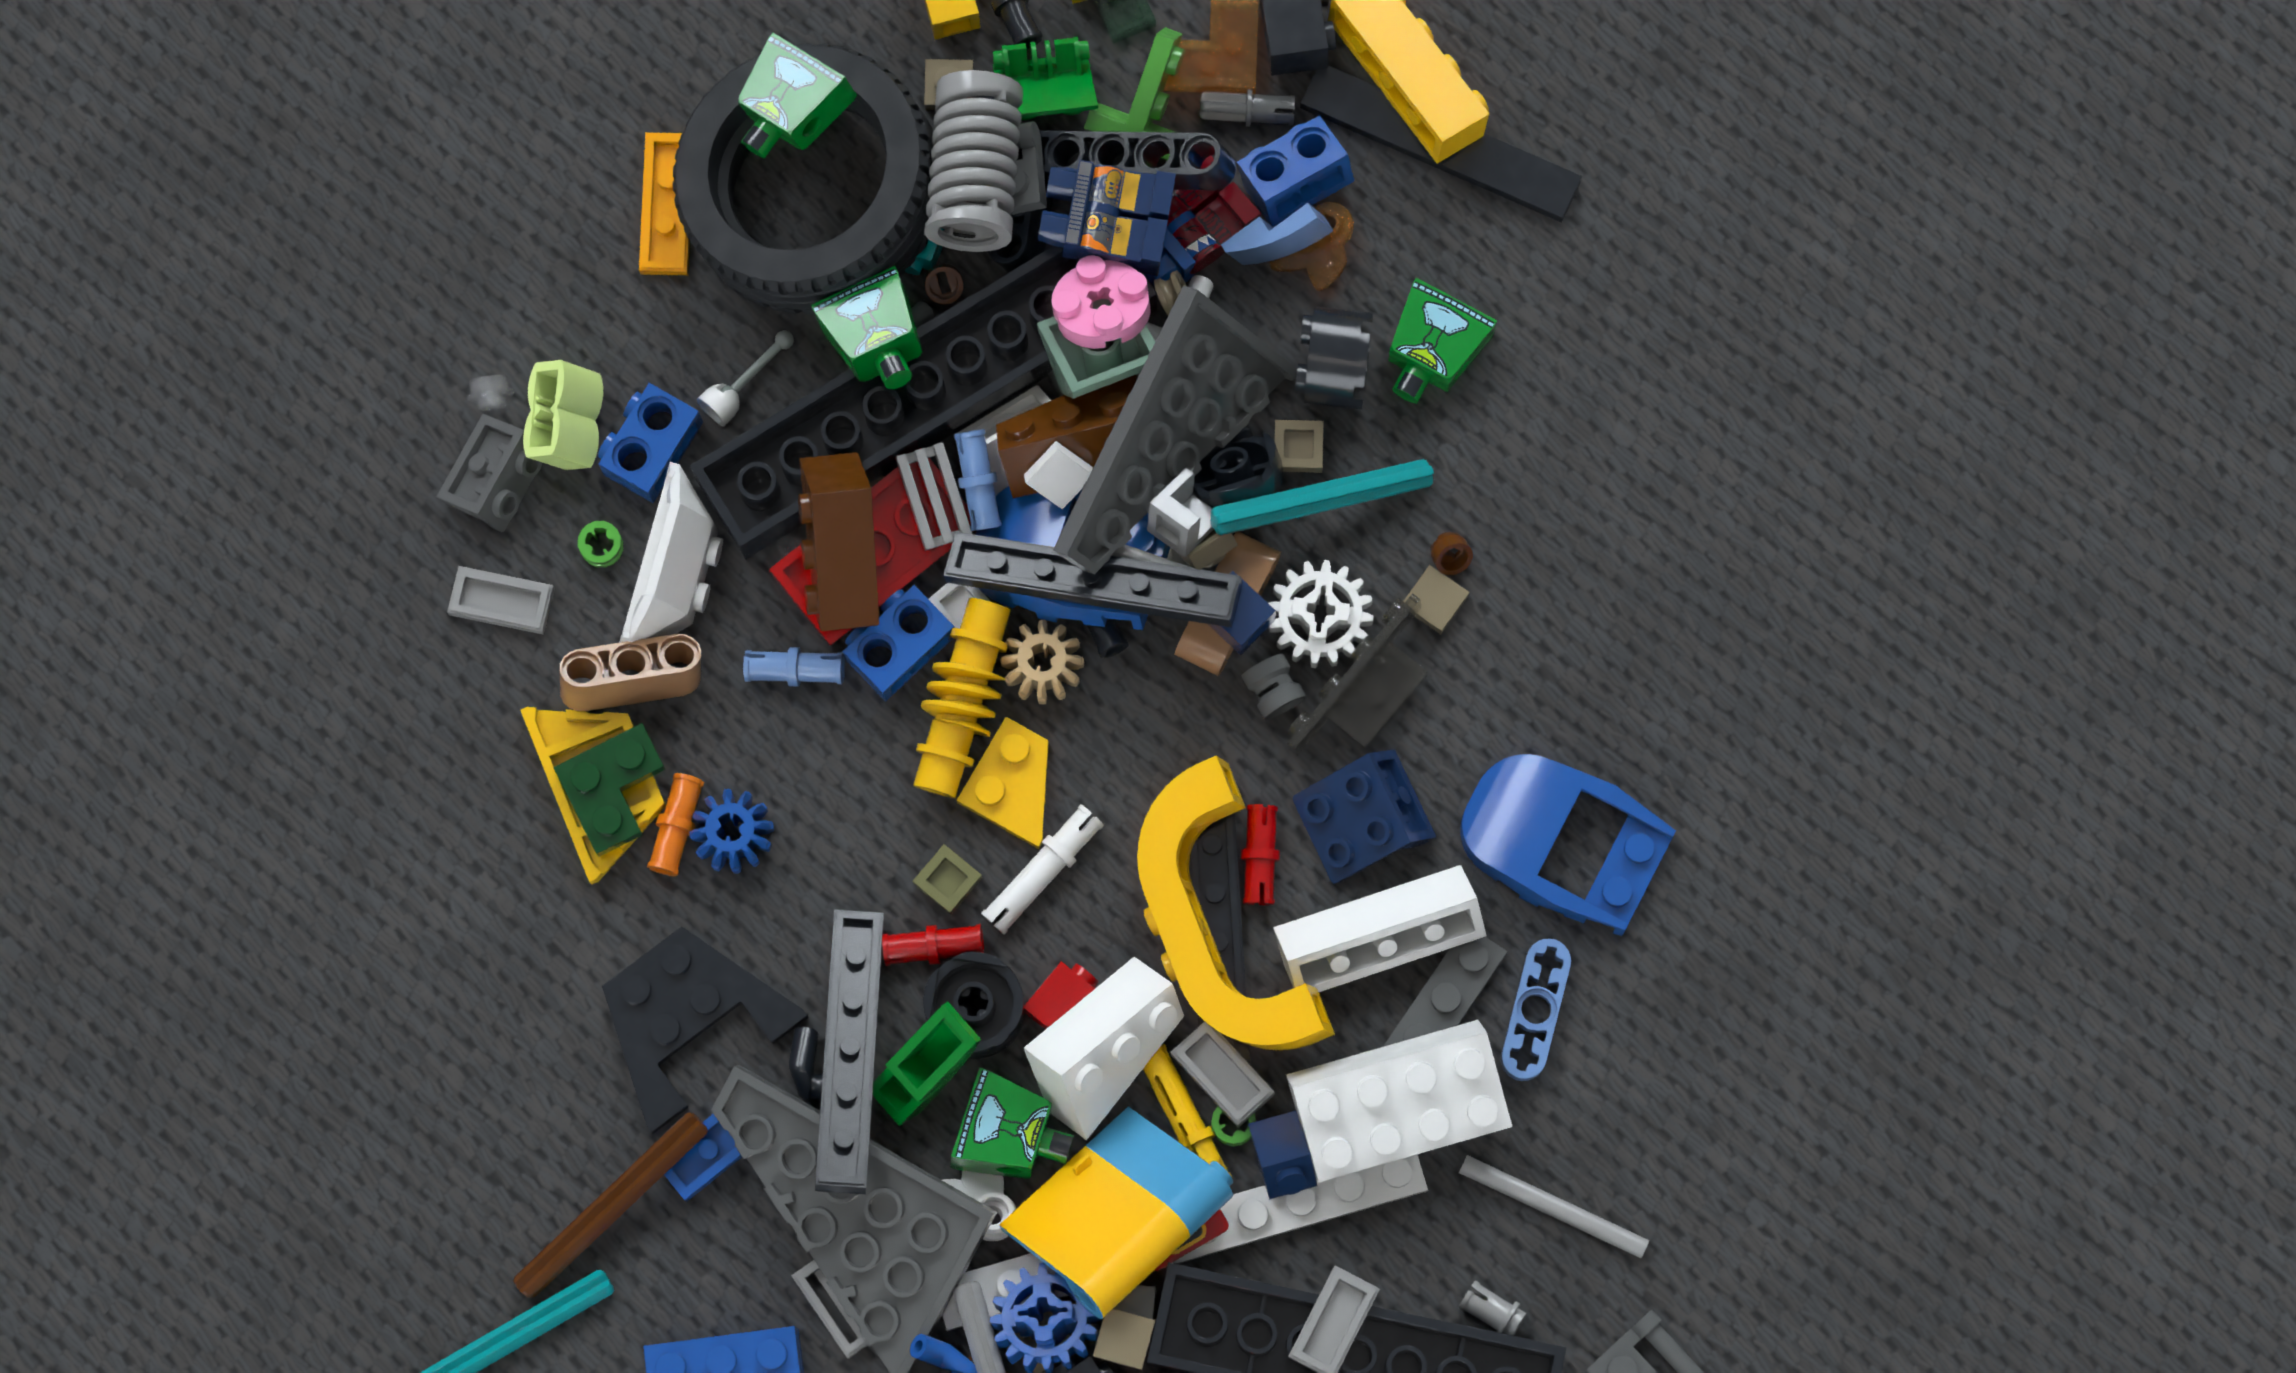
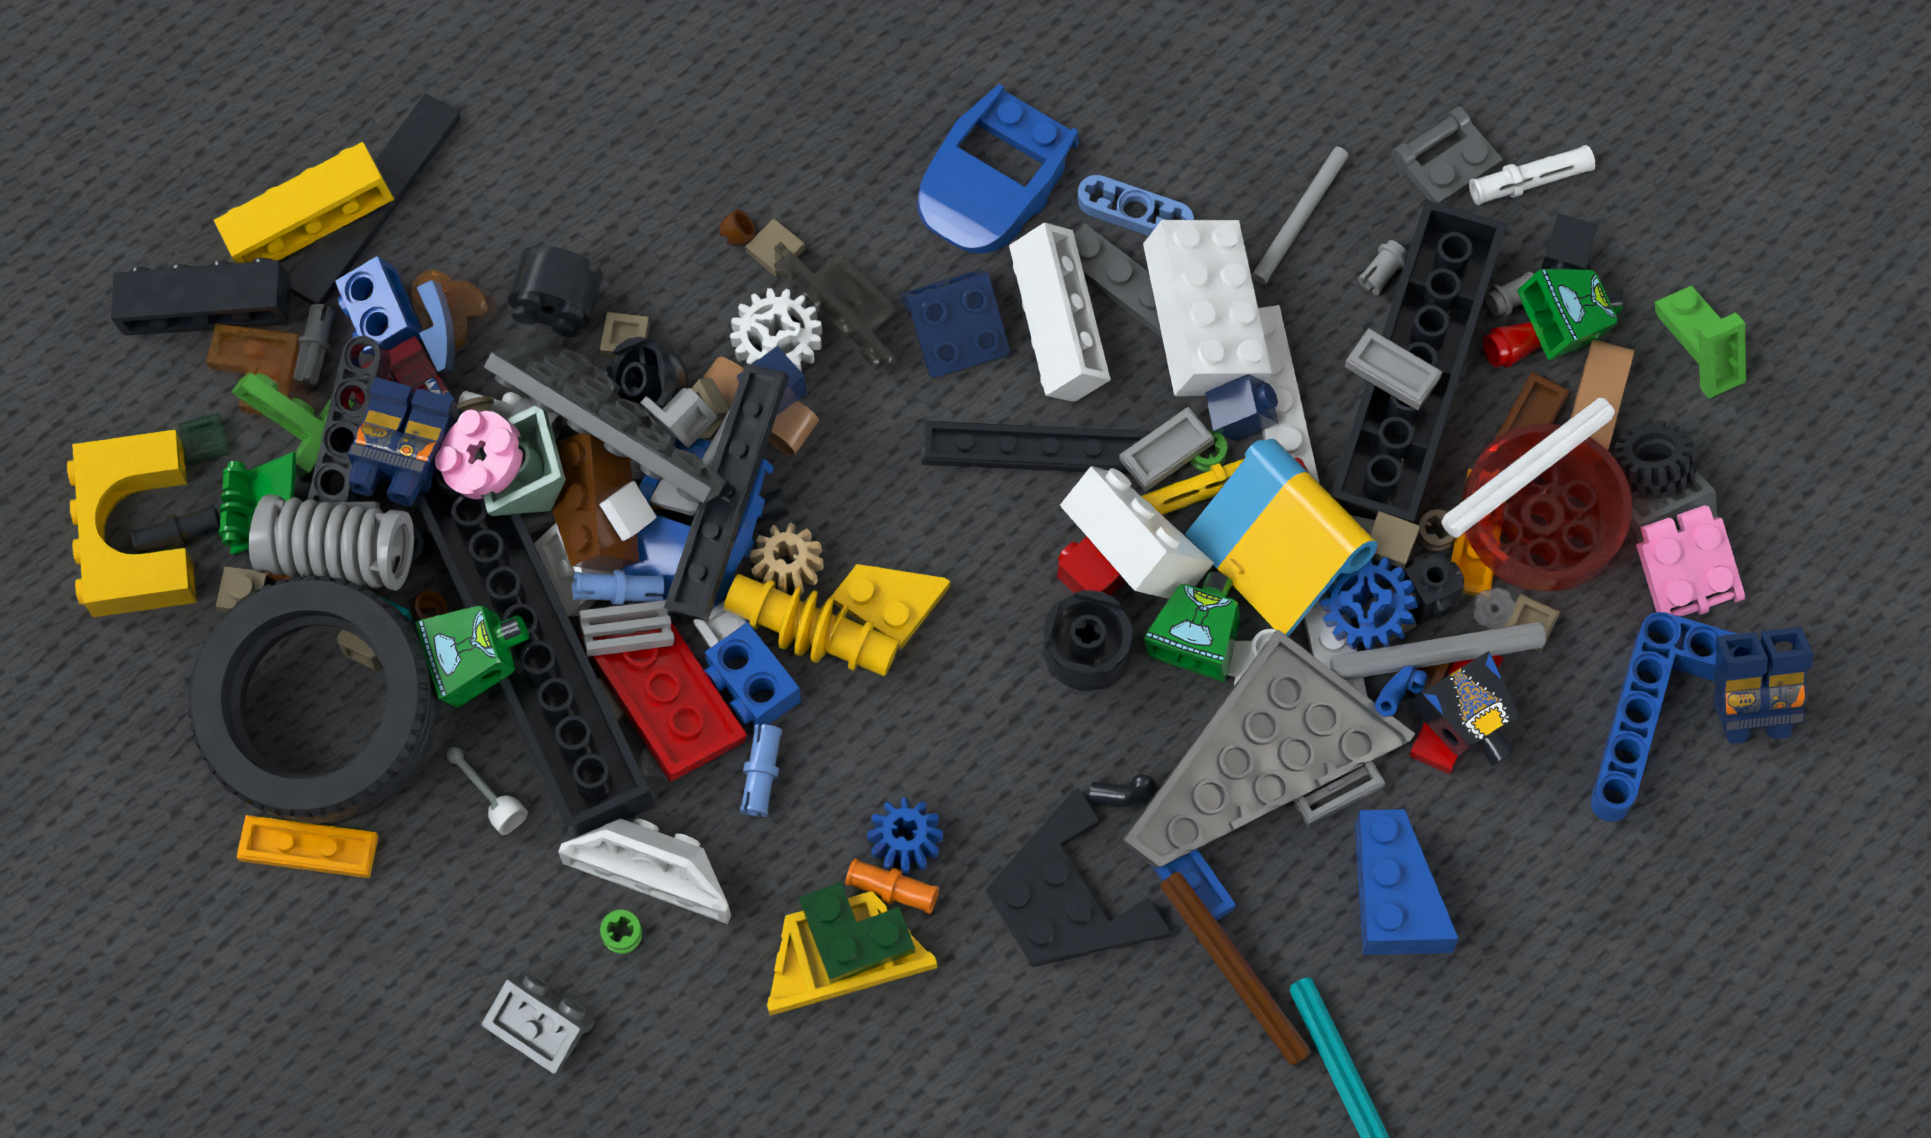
camera: 85 degrees left, 10 degrees down
(490, 392) = (461, 1017): clear plate -> none
(501, 600) = (660, 1027): light grey tile -> none
(563, 415) = (488, 943): yellowish green brick -> none
(613, 688) = (759, 922): medium nougat beam -> none
(658, 445) = (541, 868): blue brick -> none
(791, 97) = (243, 686): torso -> none
(838, 542) = (658, 697): reddish brown wedge -> none
(849, 1052) = (1120, 743): tile -> none
(925, 1064) = (1139, 675): green slope -> none
(932, 944) = (1027, 676): red pin -> none
(947, 879) = (970, 659): olive plate -> none
(1043, 868) = (959, 568): white pin -> none
(1174, 912) = (1030, 466): yellow arch -> none
(1260, 855) = (979, 404): red pin -> none
(1273, 686) = (825, 378): dark grey wheel -> none
(1321, 497) = (677, 313): teal axle -> none
(1436, 340) = (549, 214): green torso -> none

